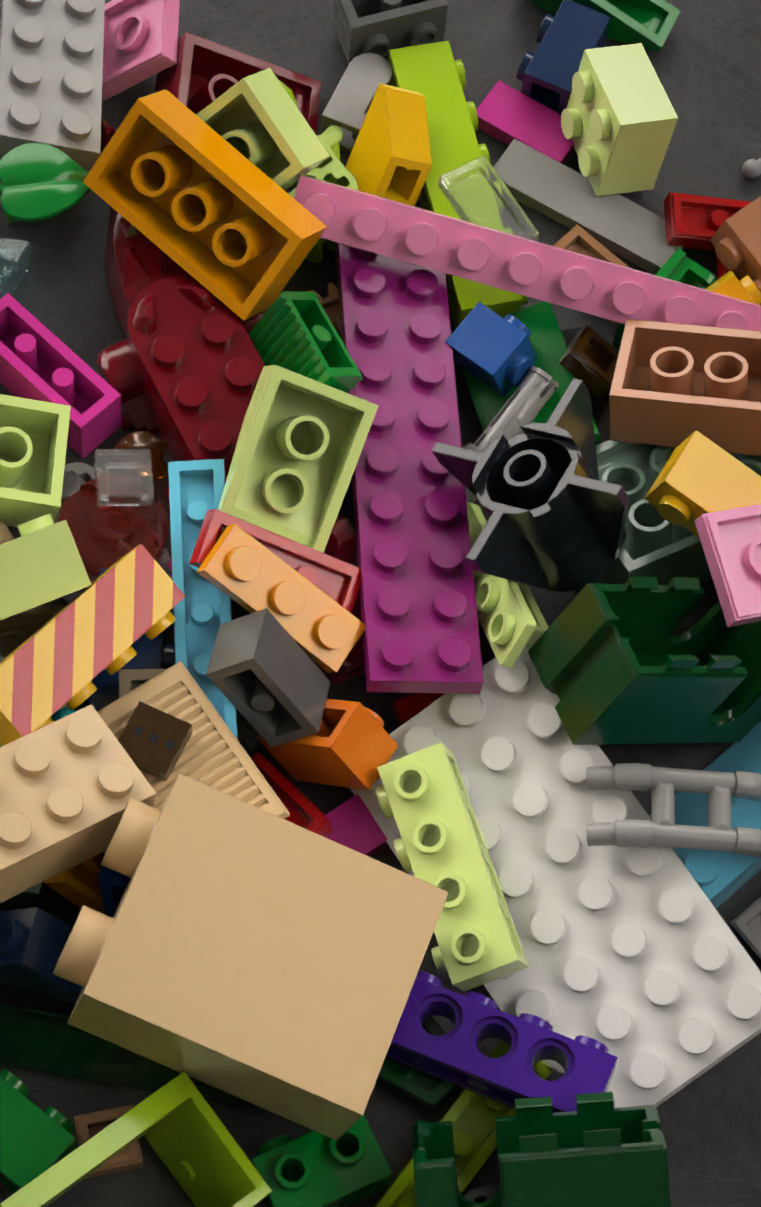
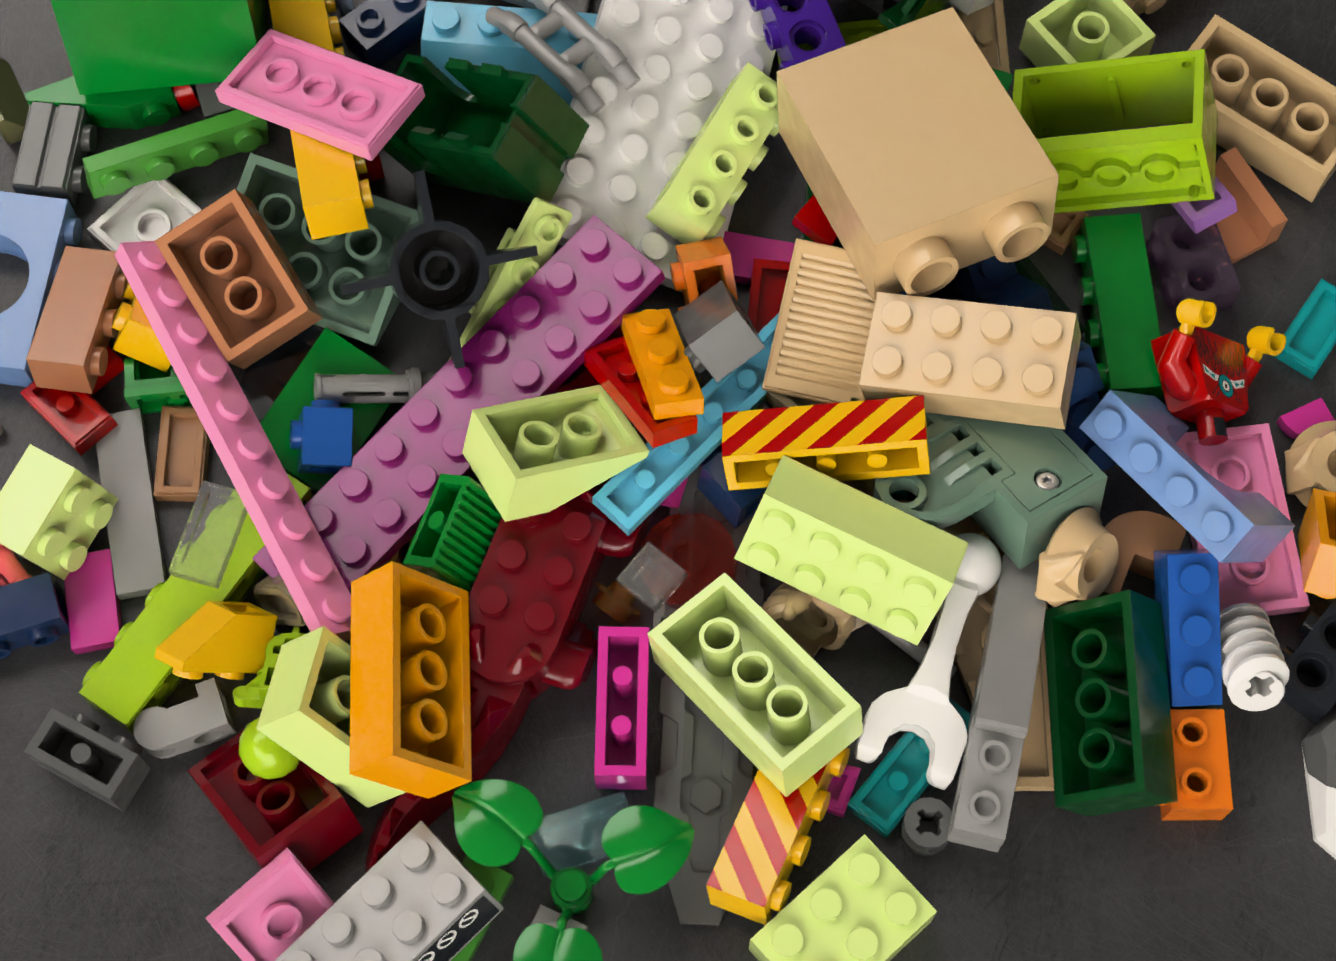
camera: 125 degrees left, 5 degrees up
(155, 740) = (835, 346): dark brown tile -> none
(591, 360) = (271, 376): dark brown tile -> none

